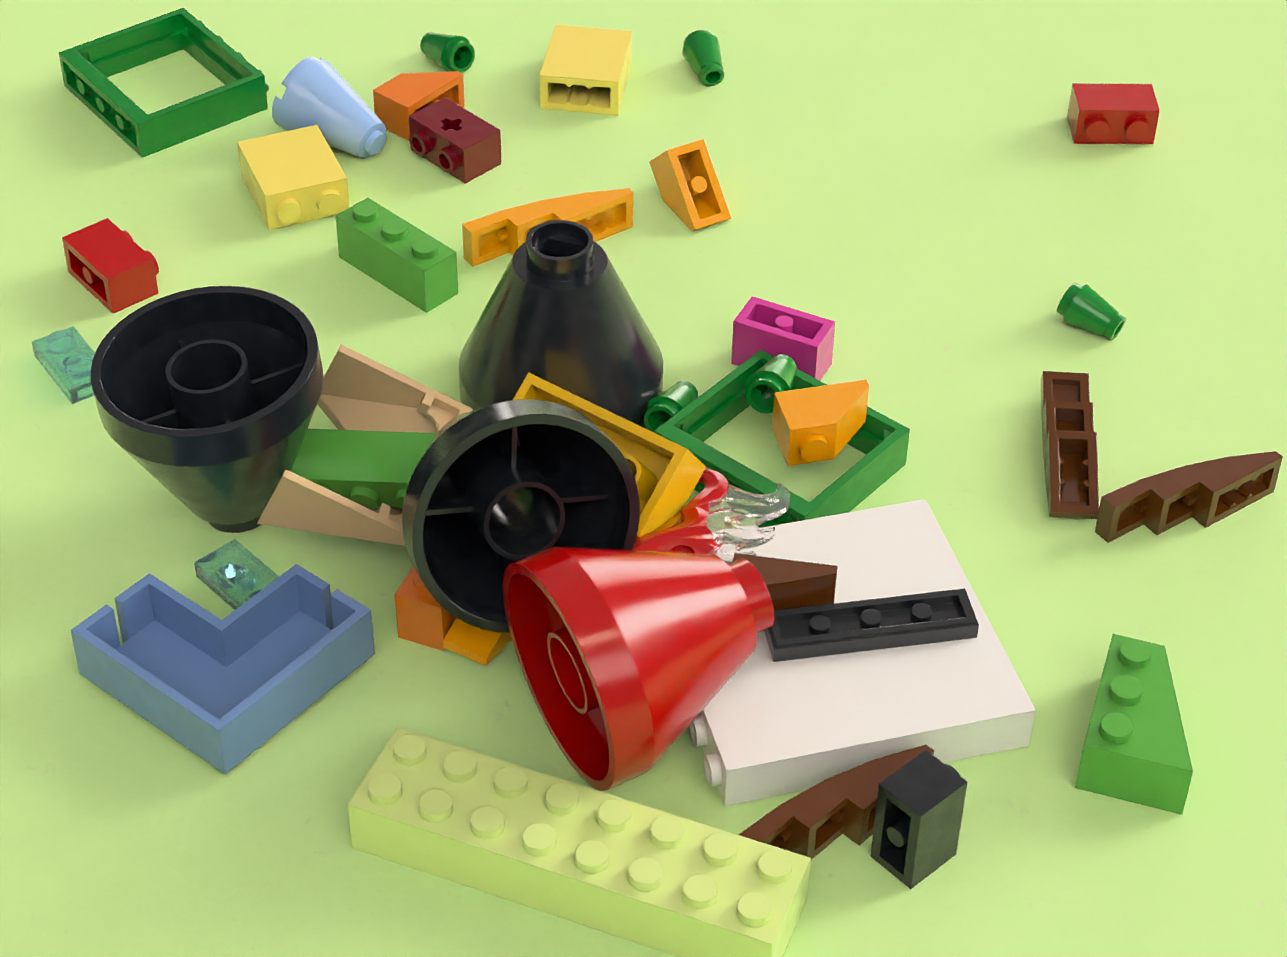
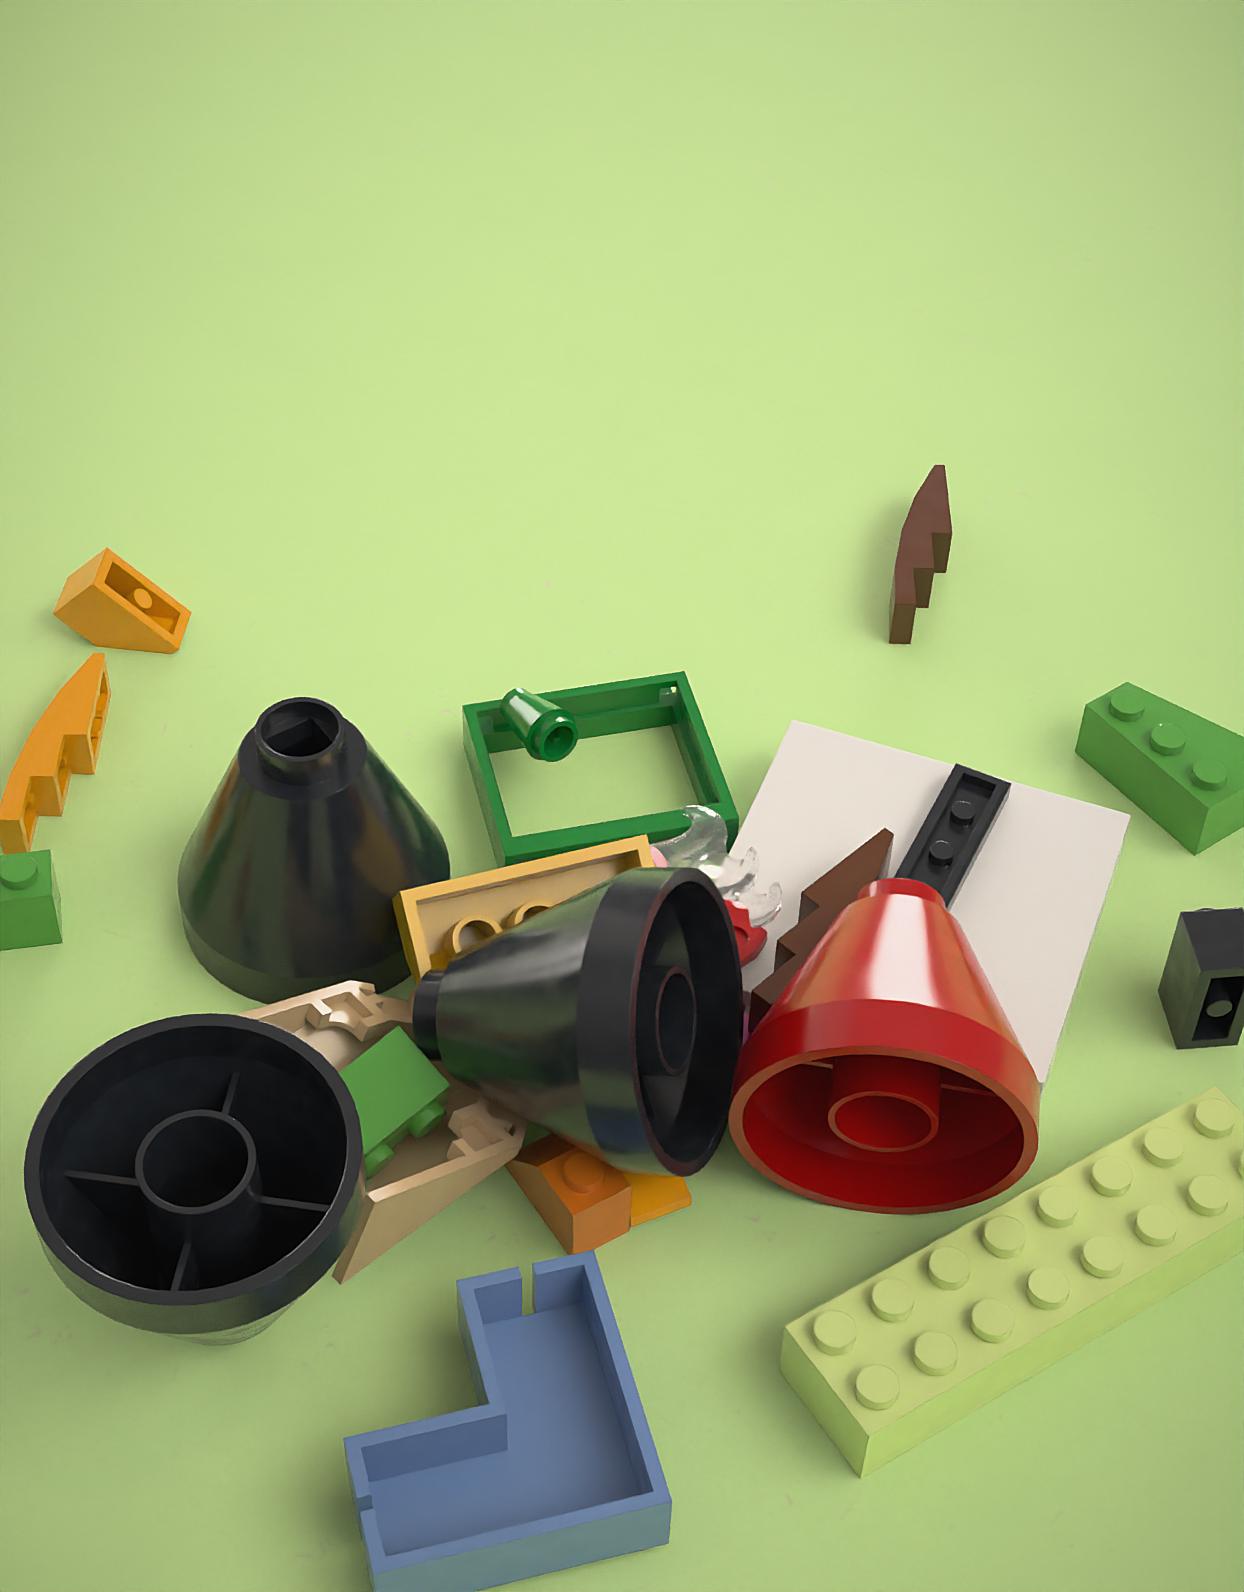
camera: 55 degrees left, 5 degrees up
(234, 573) = (382, 1357): clear light blue plate -> none
(669, 404) = (460, 827): green cone -> none
(783, 331) = (454, 674): dark pink brick -> none
(818, 420) = (632, 727): light orange slope -> none
(830, 808) = (1130, 1031): reddish brown slope -> none
(1069, 445) = (785, 592): reddish brown slope -> none
(1090, 311) = (613, 460): green cone -> none
(1113, 113) = (355, 271): red brick -> none

